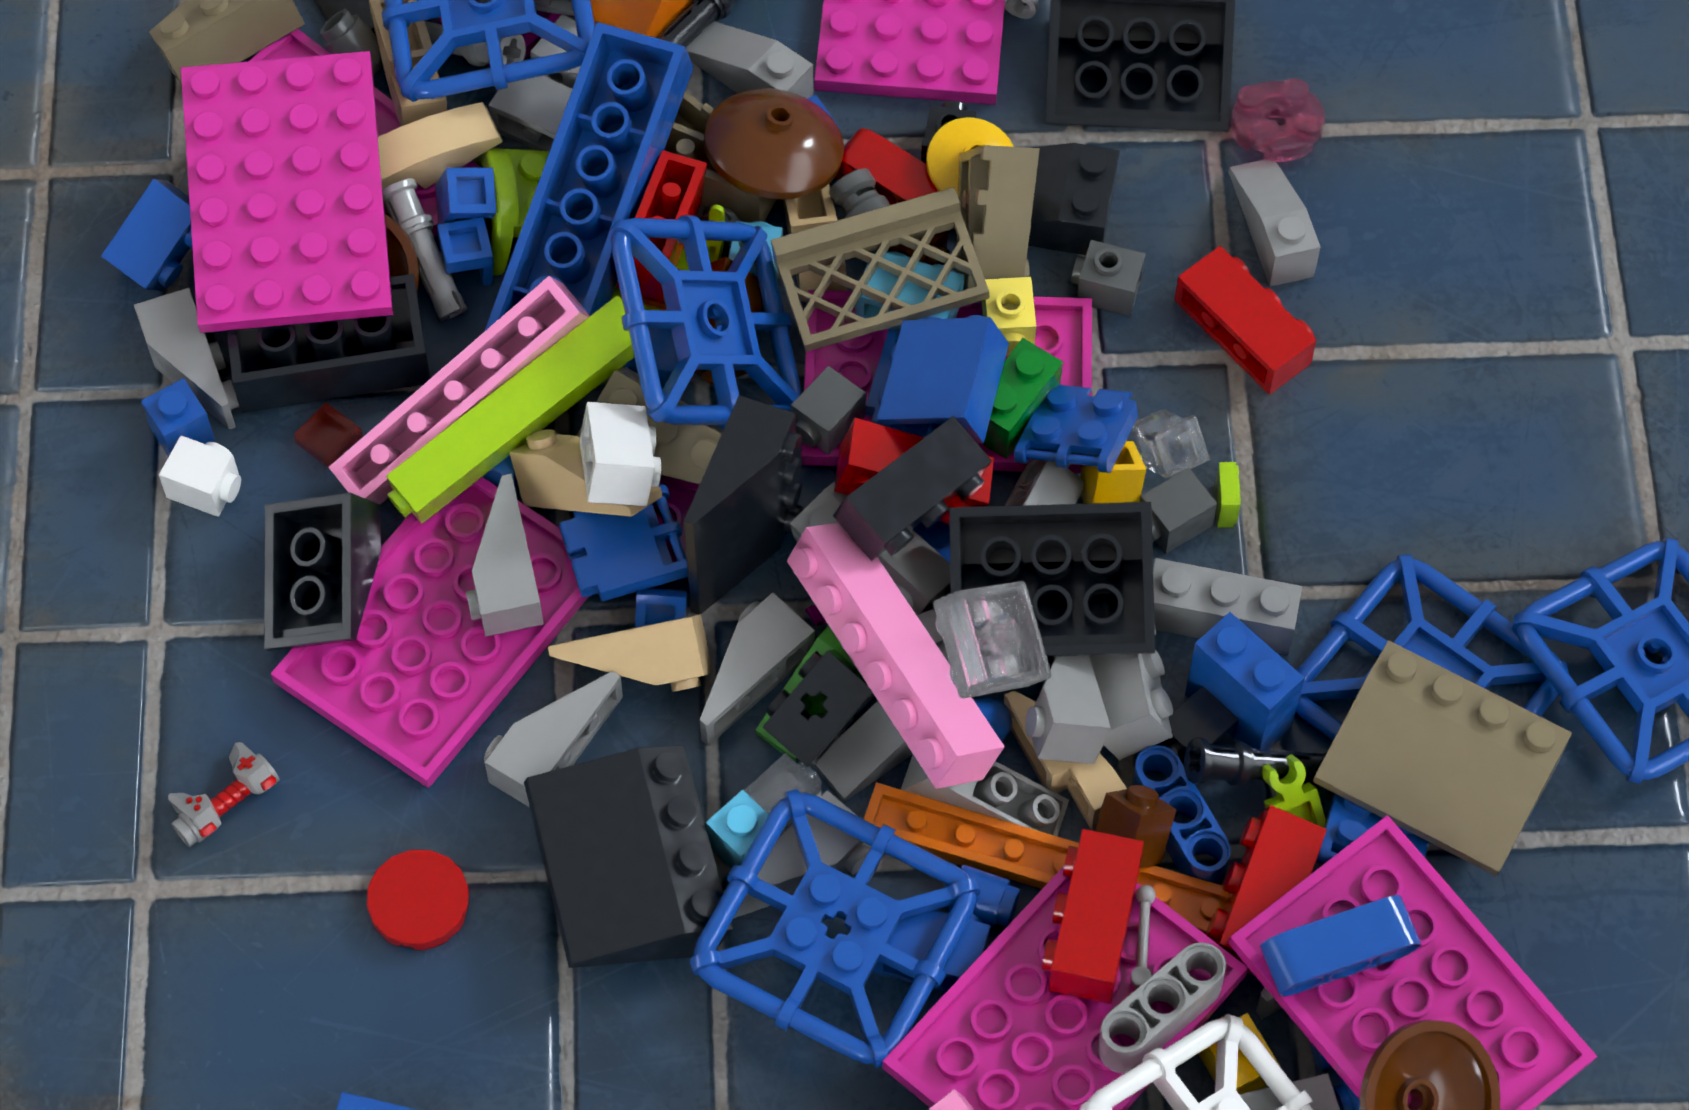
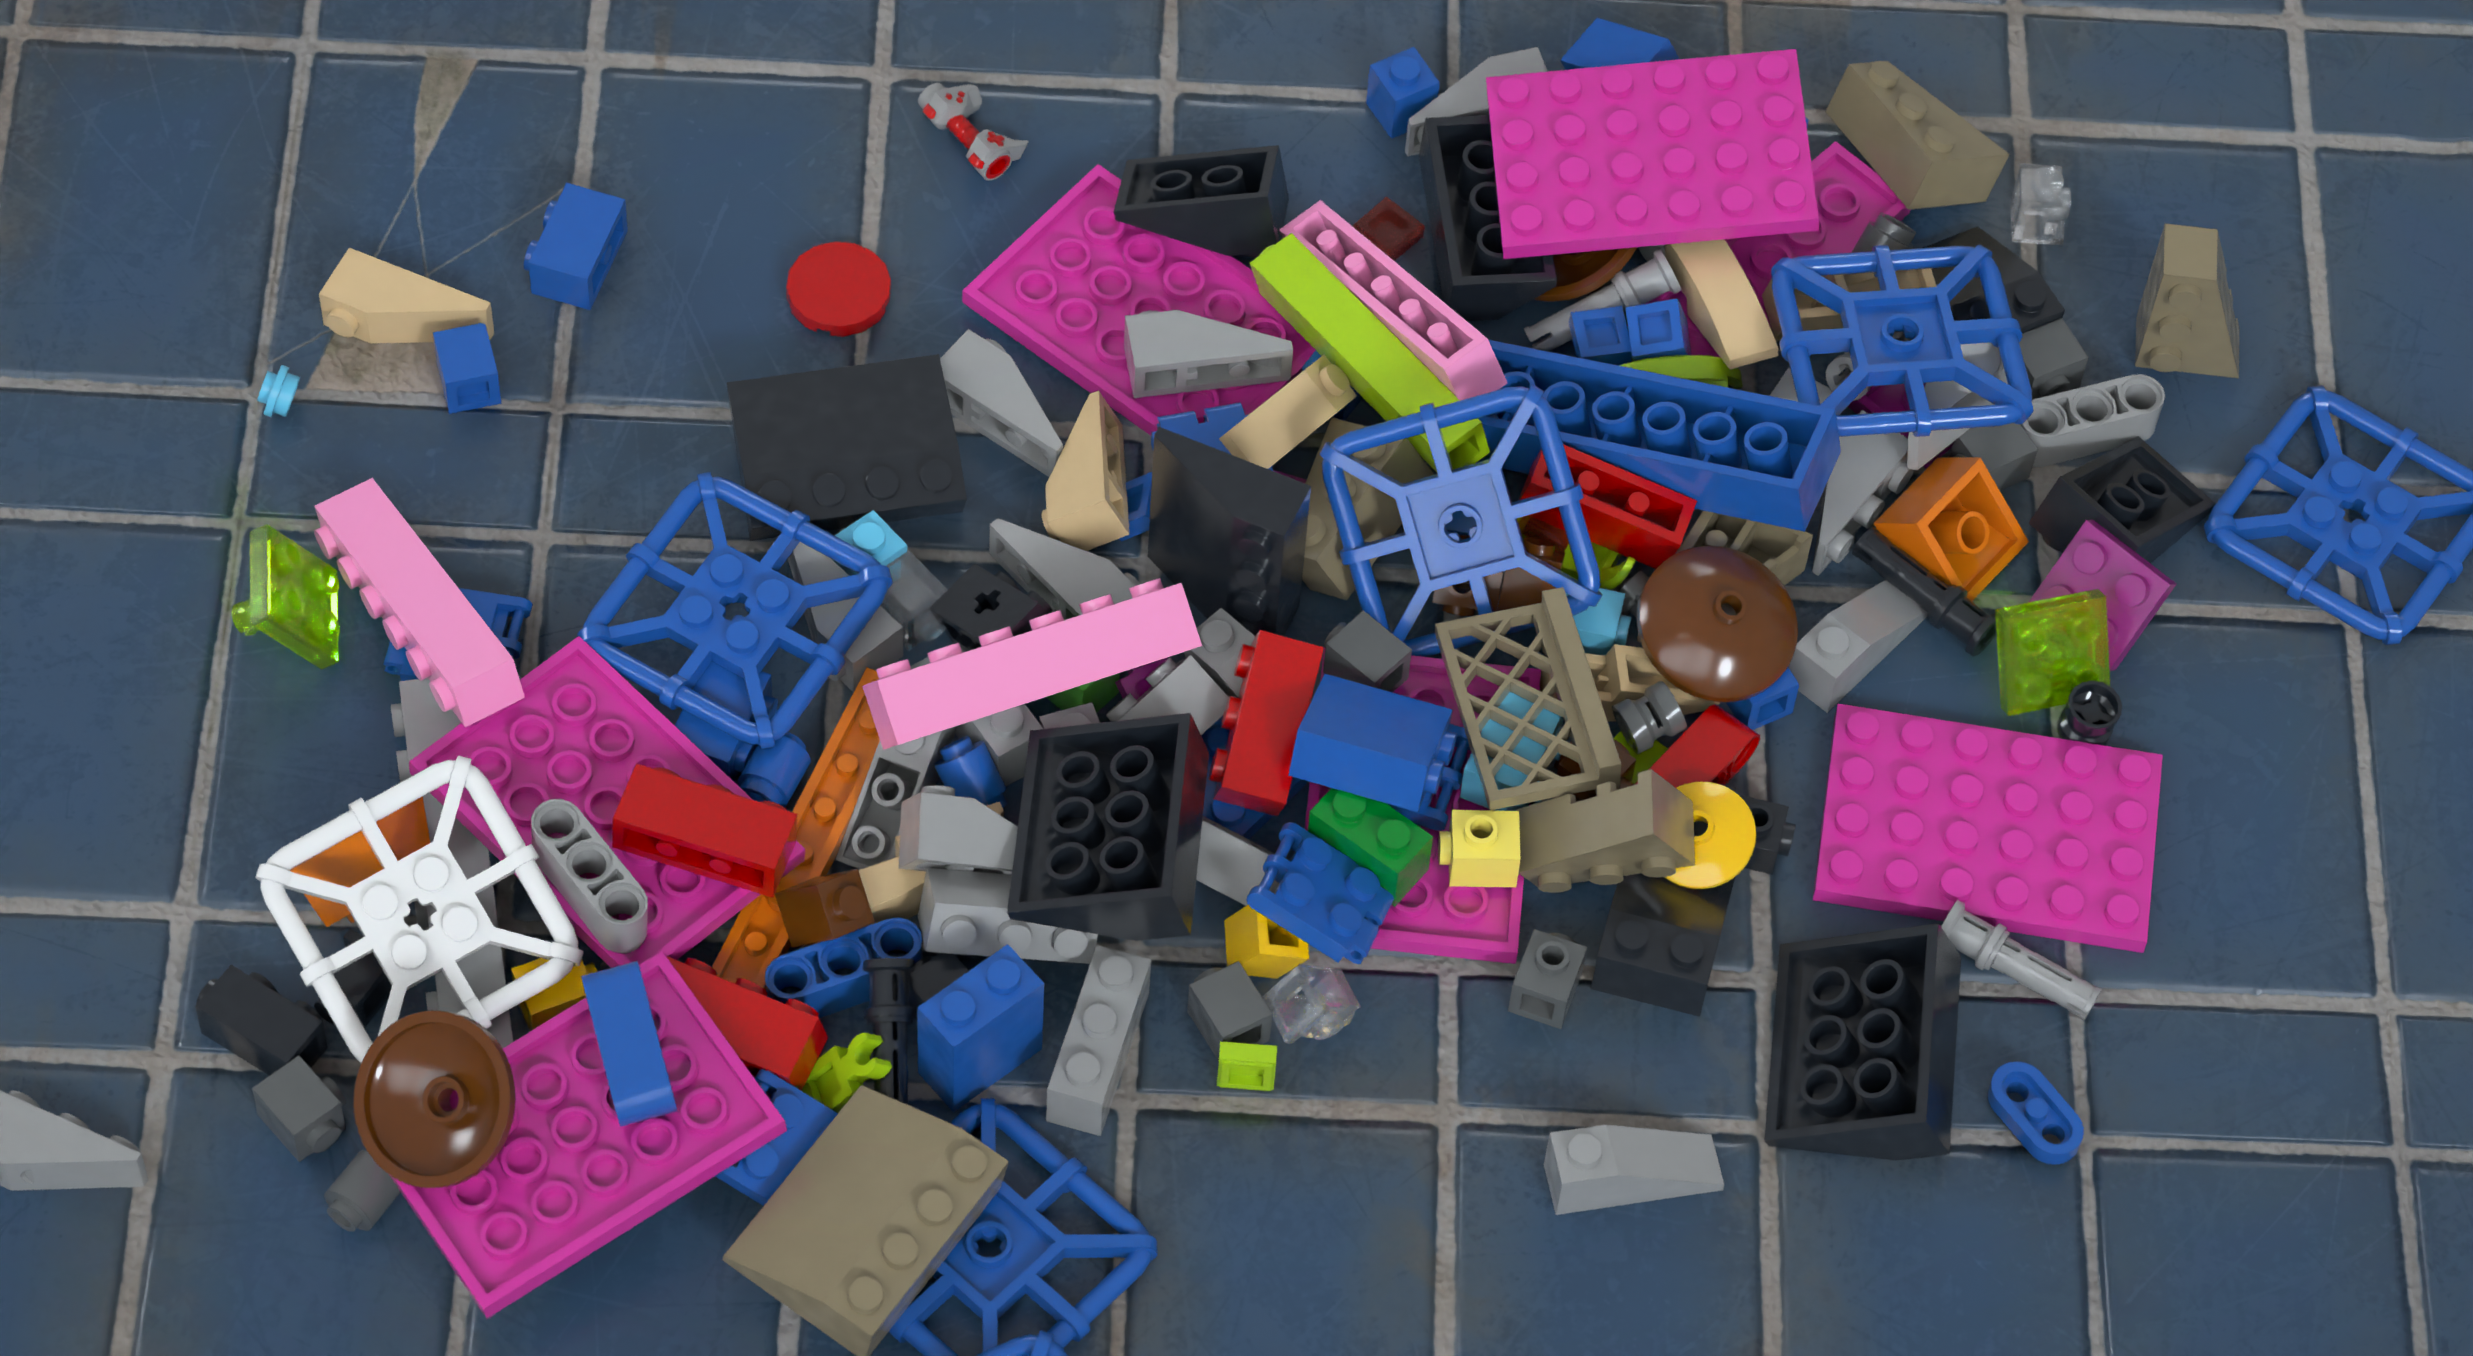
camera: 90 degrees right, 5 degrees down
(200, 475) = (1338, 113): white brick -> none
(618, 454) = (1286, 420): white brick -> none
(913, 490) = (1218, 685): black brick -> none
(991, 639) = (1003, 767): clear brick -> none
(1145, 896) = (729, 890): light grey hinge -> none
(1245, 319) = (1484, 1115): red brick -> none
(1283, 100) = (1795, 1169): clear pink plate -> none

